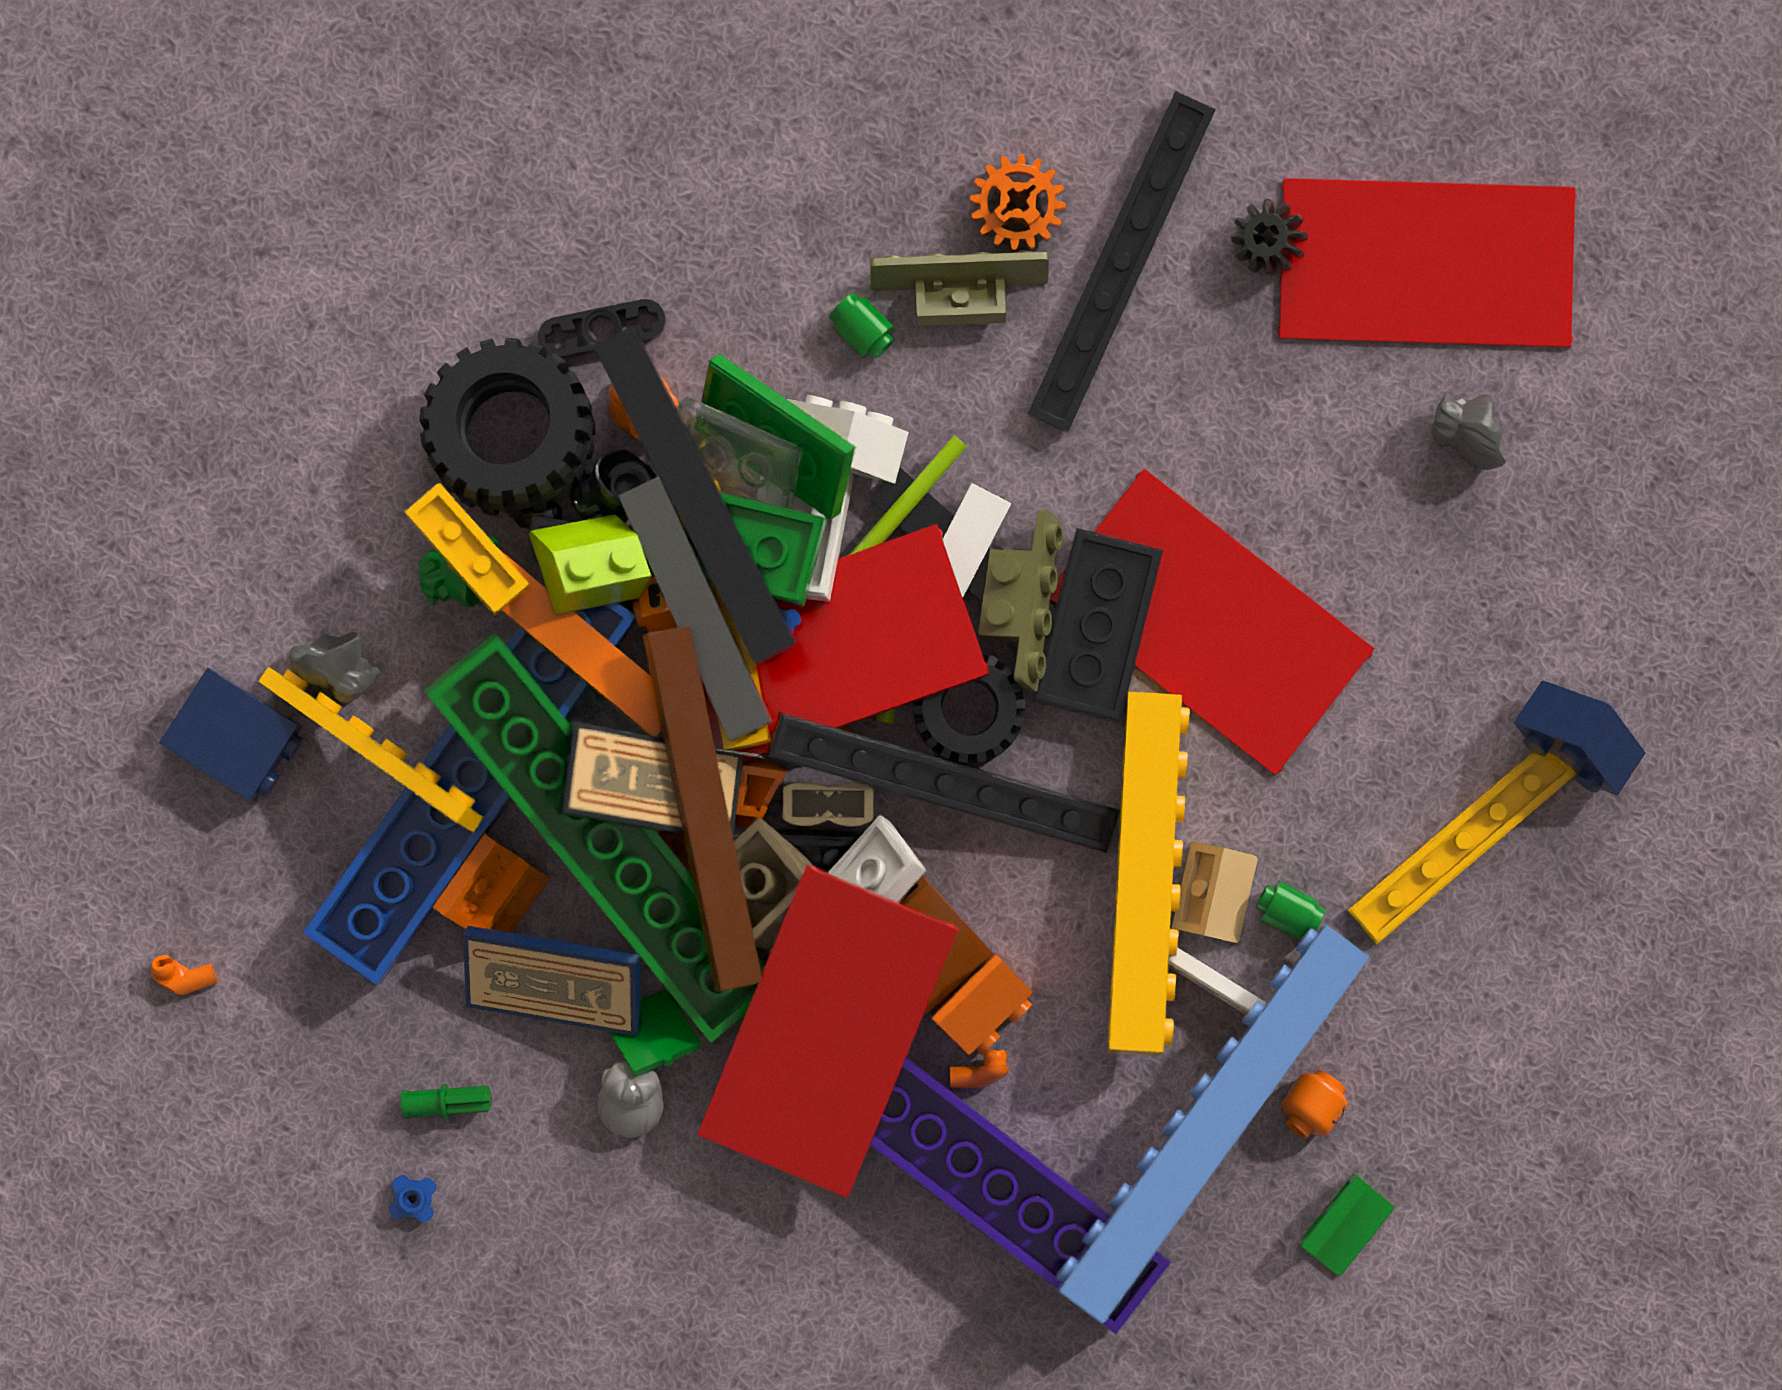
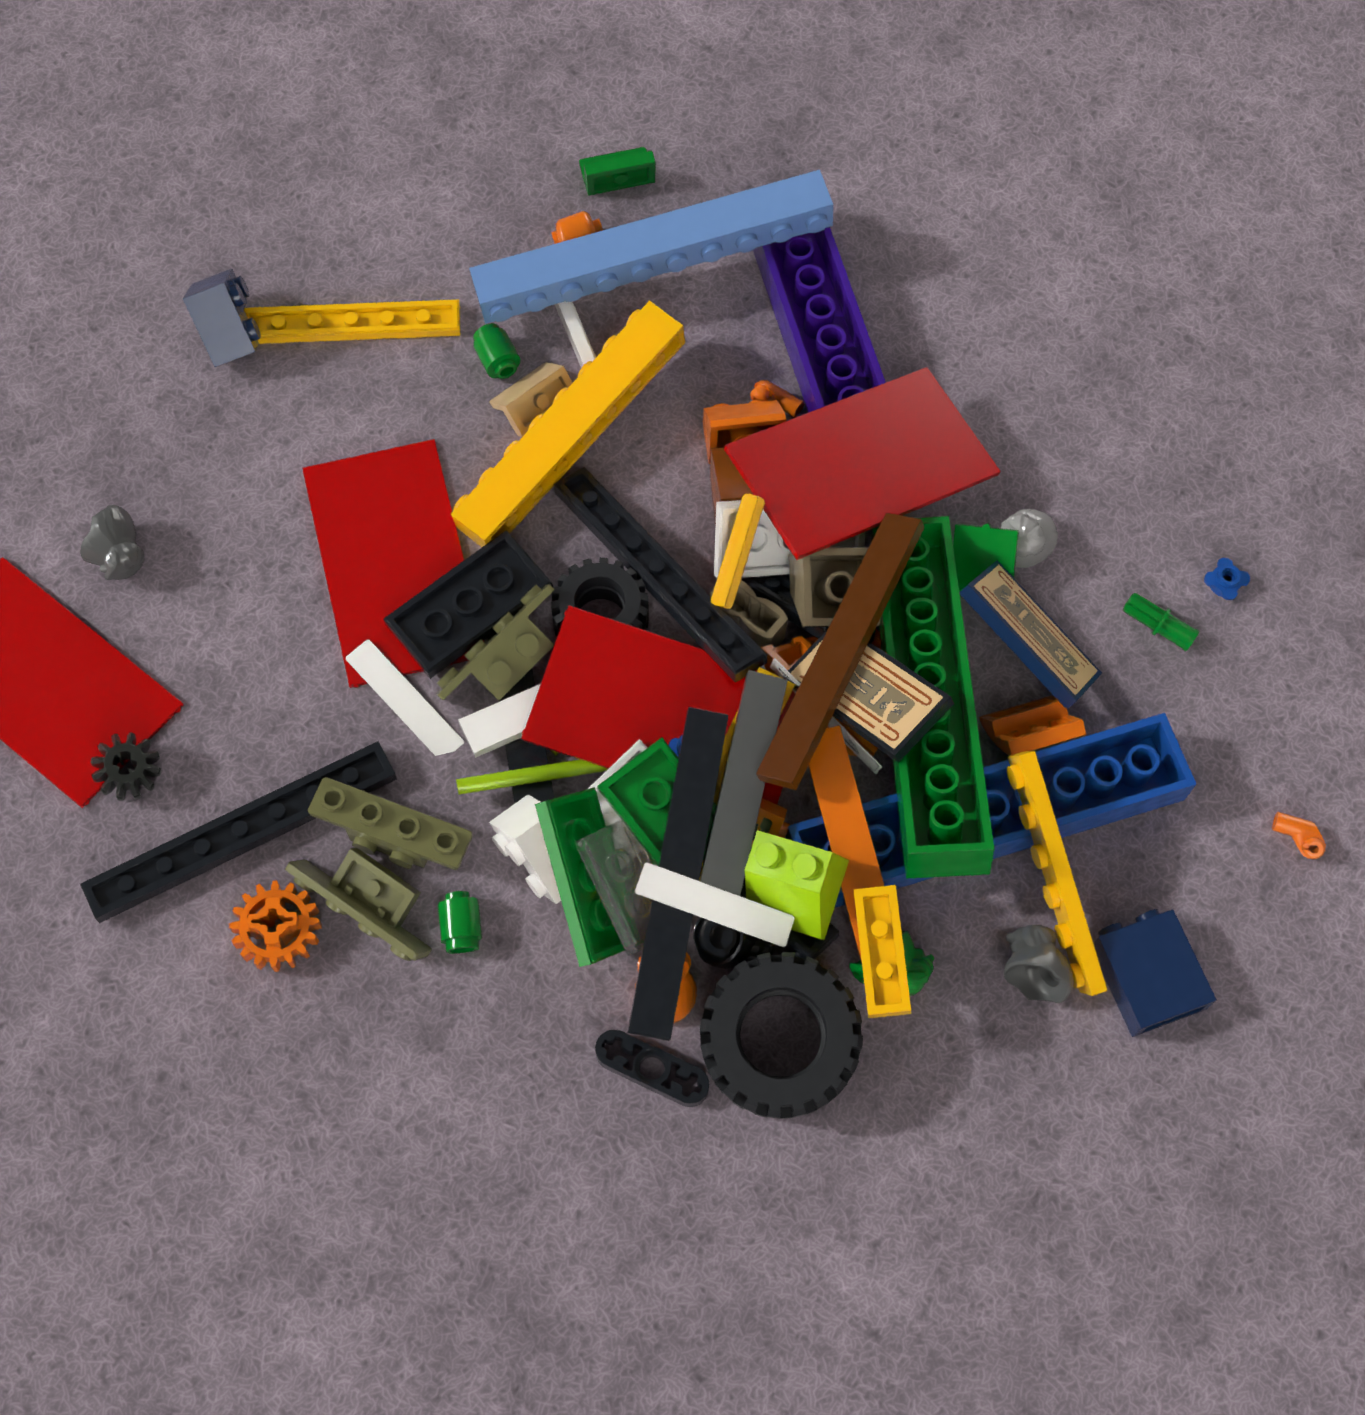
camera: 145 degrees left, 20 degrees down
(640, 486) = (714, 904): none -> white sticker
(869, 836) = (737, 551): none -> yellow axle
(988, 358) = (389, 827): none -> olive bracket
(1084, 493) = (404, 699): none -> white sticker

